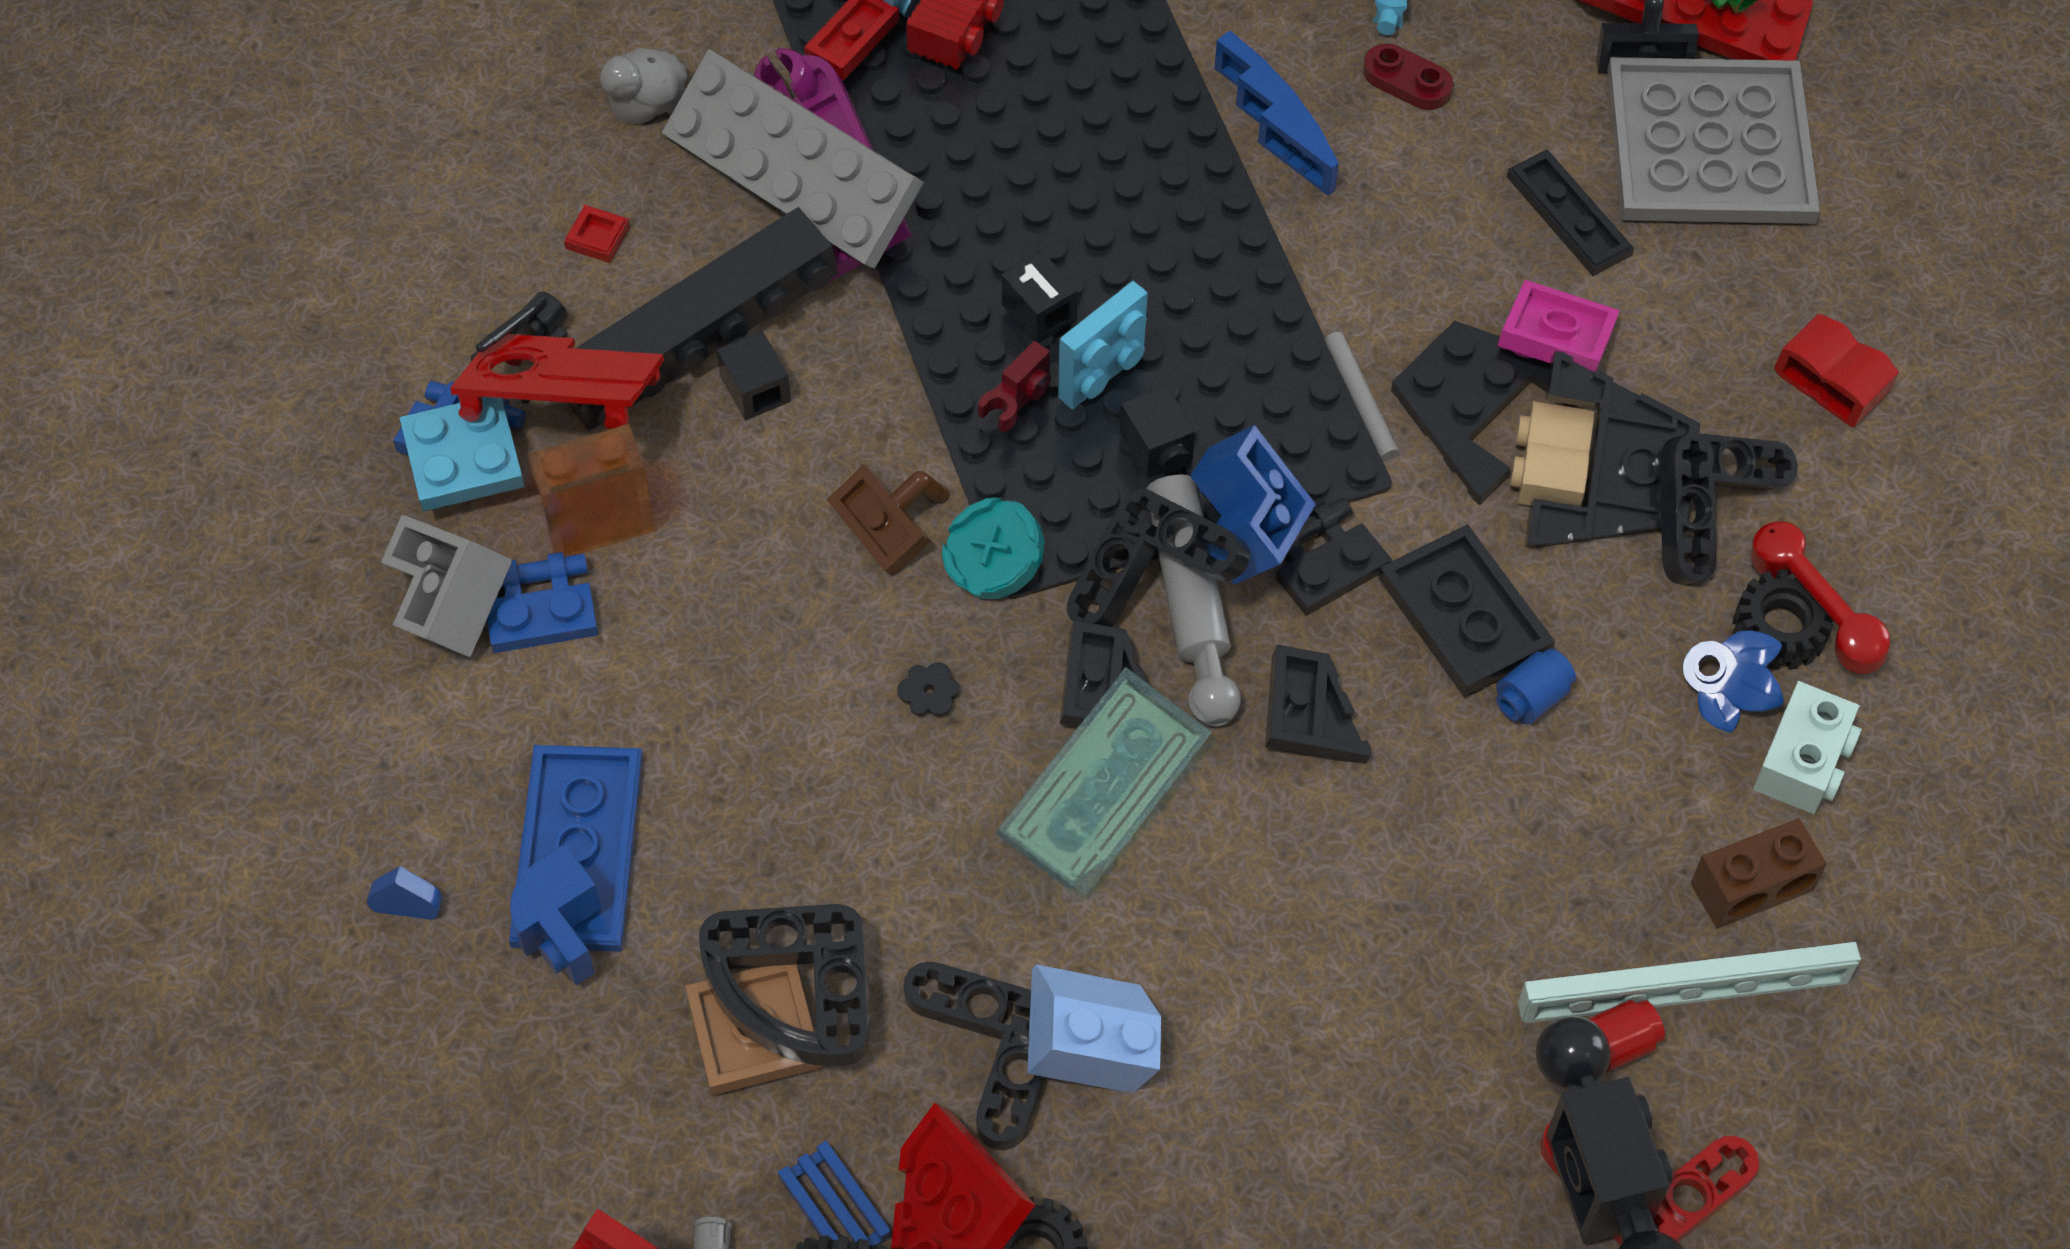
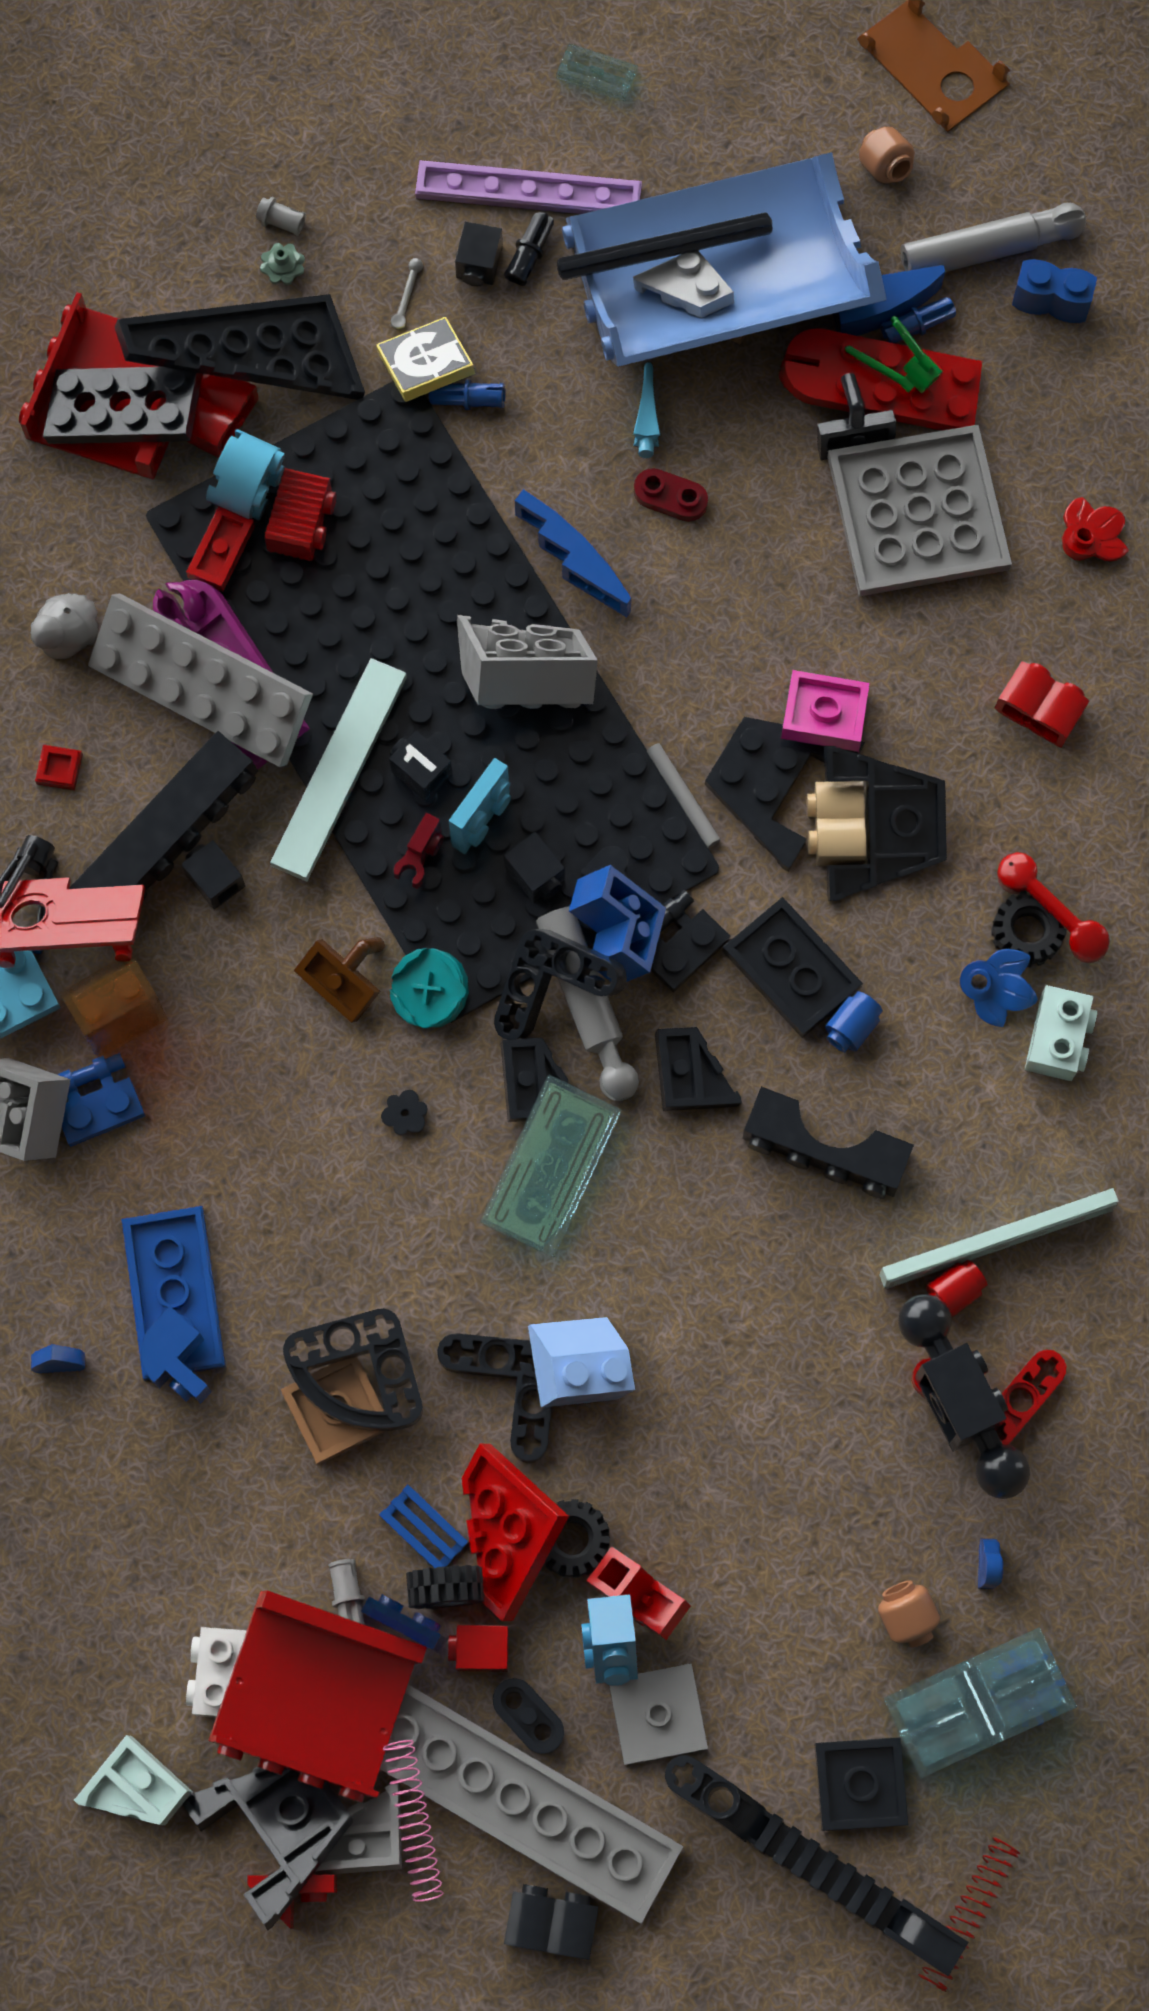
camera: 10 degrees left, 15 degrees up
(935, 289) = (338, 770): none -> light aqua tile
(1195, 215) = (526, 665): none -> light grey wedge
(1530, 857) = (778, 1127): none -> black arch
(1570, 212) = (817, 597): black tile -> none
(1707, 473) = (954, 820): black beam -> none
(1758, 873) = (1036, 1143): reddish brown brick -> none
(1926, 200) = (1097, 528): none -> red plate

